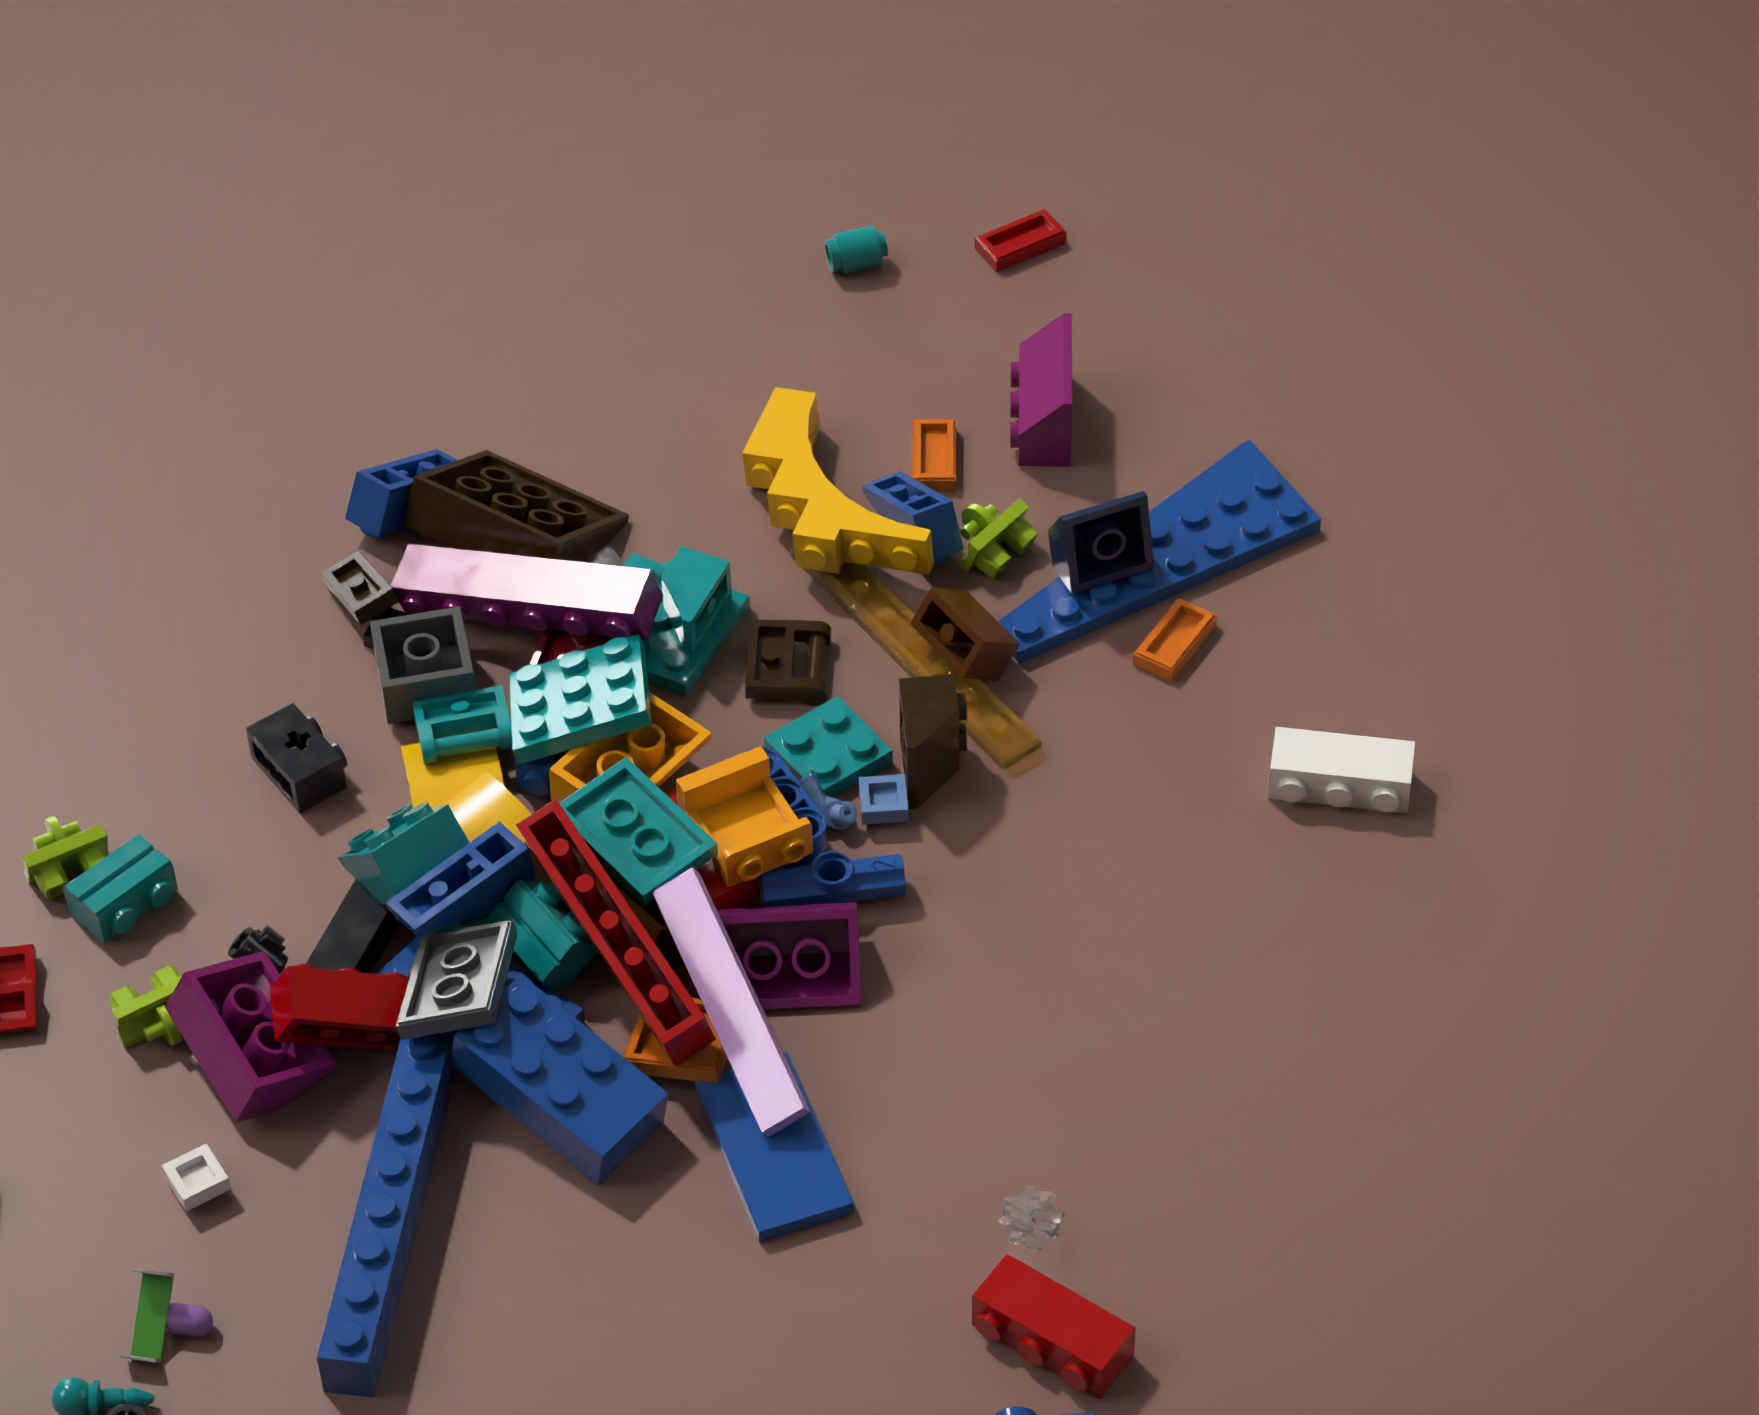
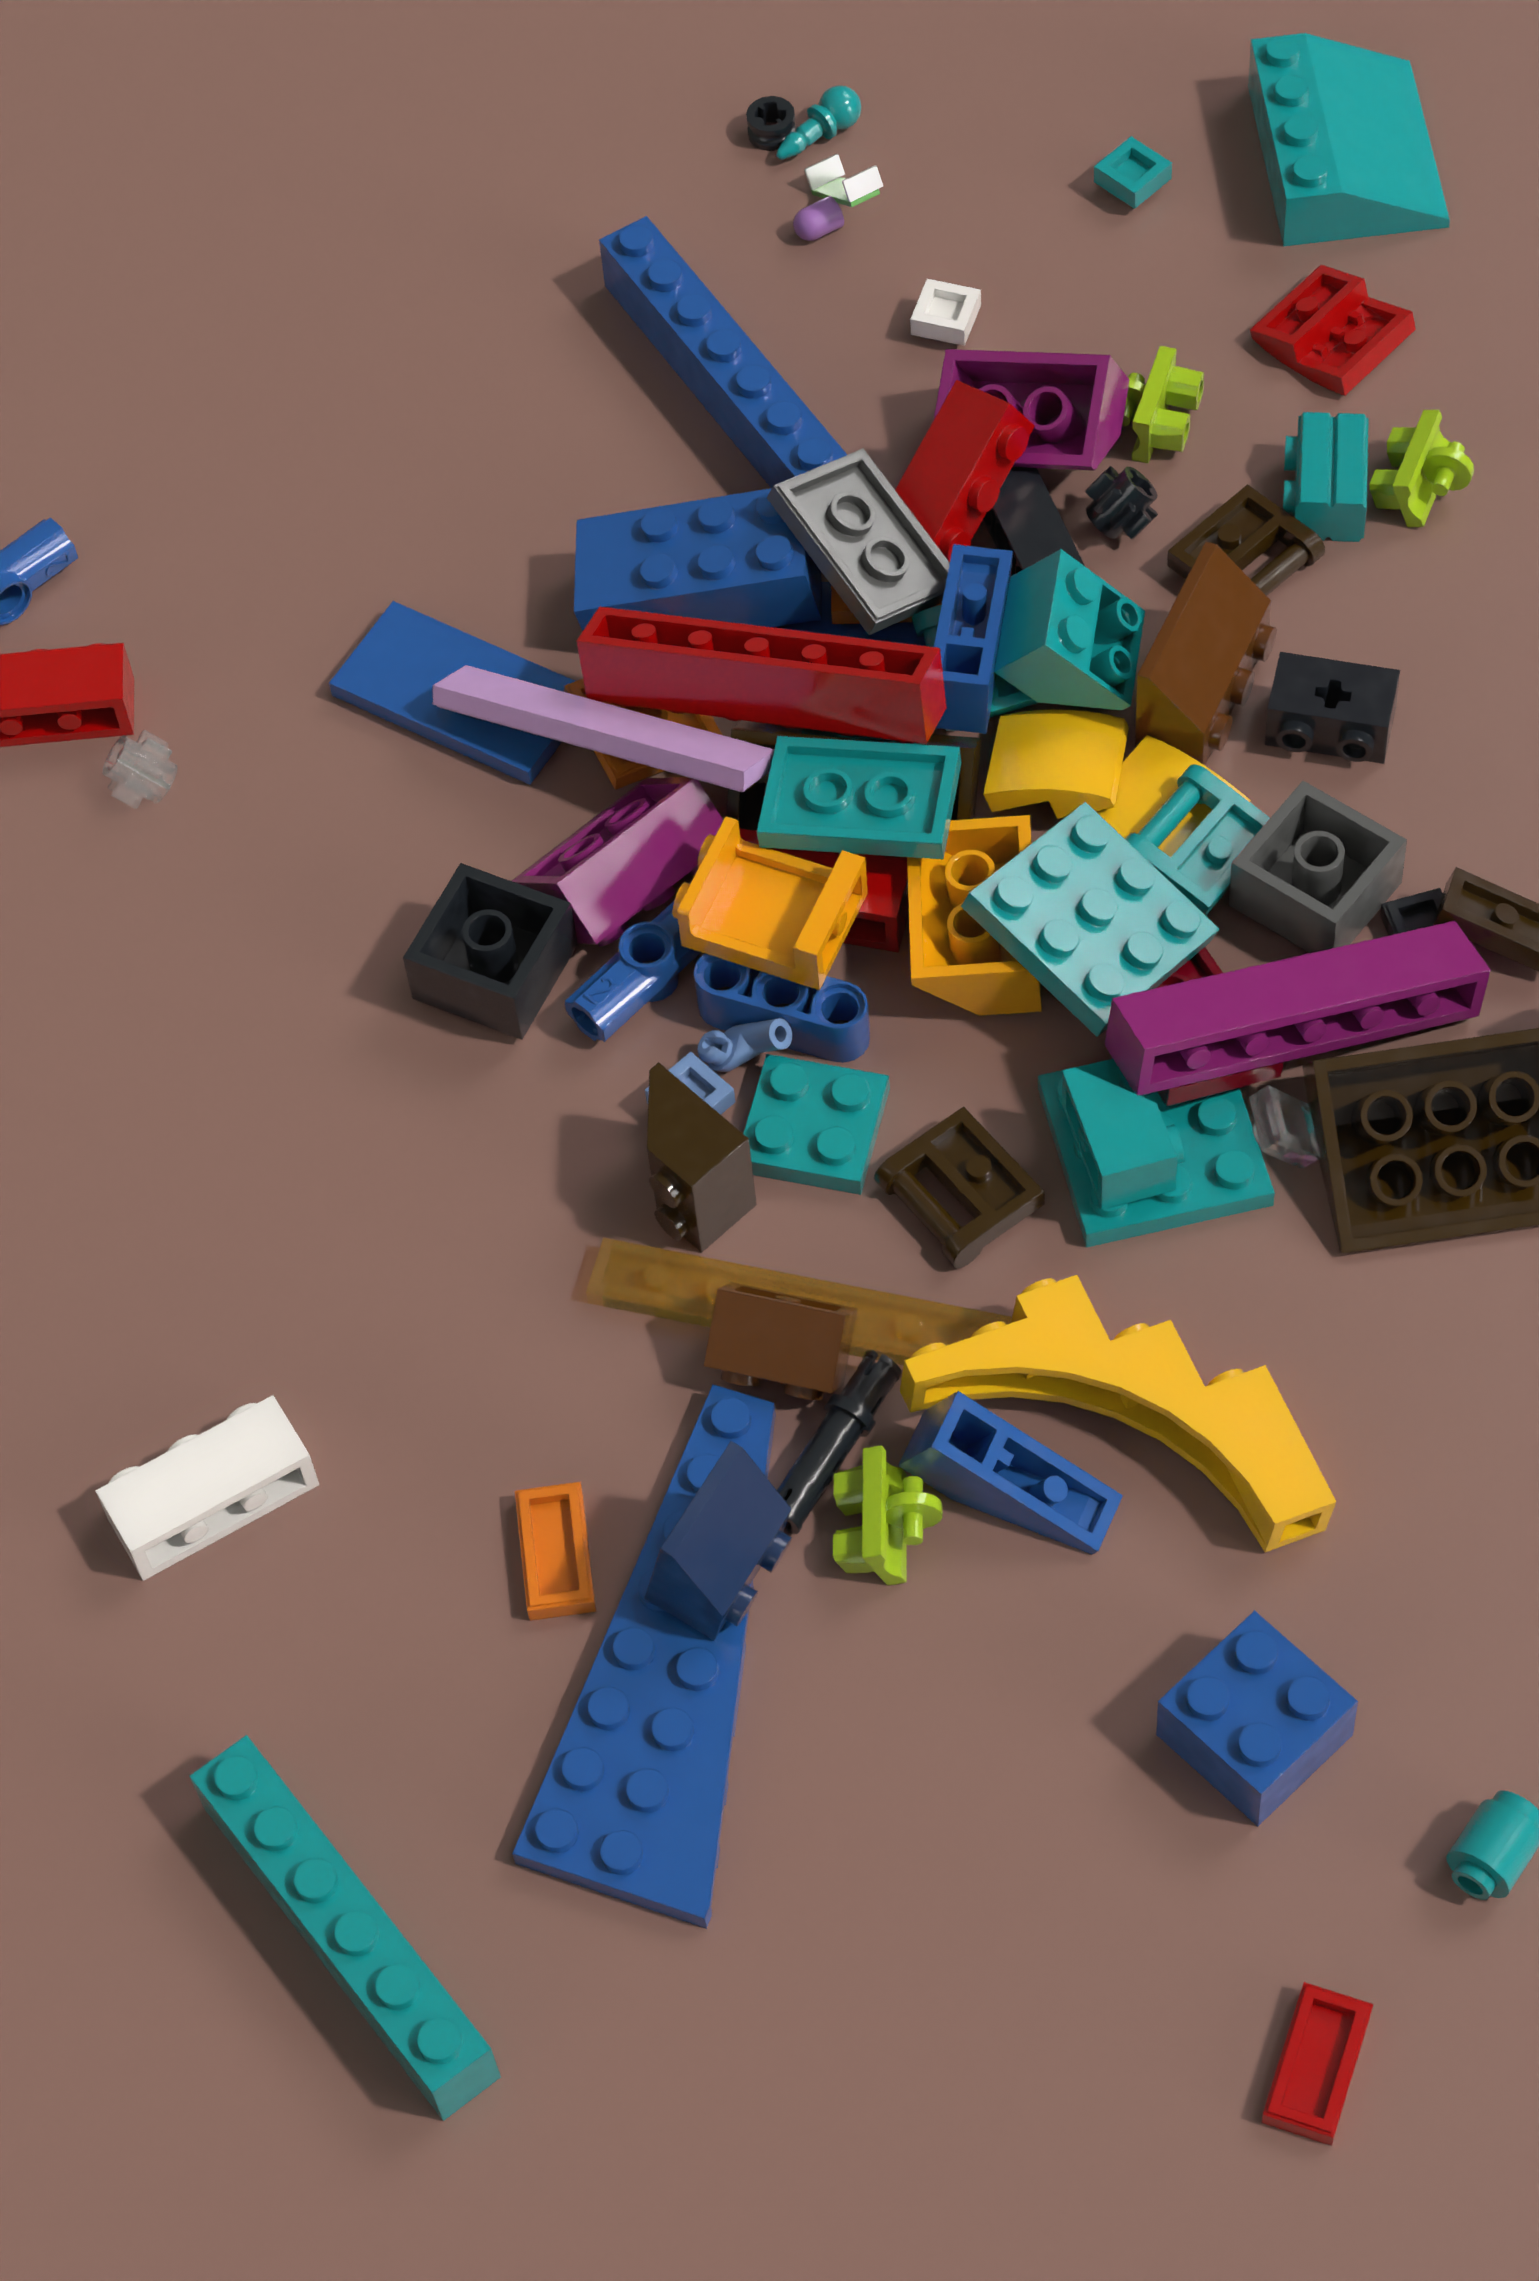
camera: 145 degrees right, 10 degrees up
(223, 888) = (1244, 531): none -> dark brown plate
(317, 830) = (1204, 657): none -> reddish brown slope
(908, 349) = (1256, 1718): none -> blue brick
(922, 935) = (491, 950): none -> black brick
(934, 453) = (1082, 1607): orange tile -> none
(997, 584) = (846, 1420): none -> black pin
(1043, 396) = (1005, 1761): magenta slope -> none
(1435, 534) = (346, 1928): none -> teal brick

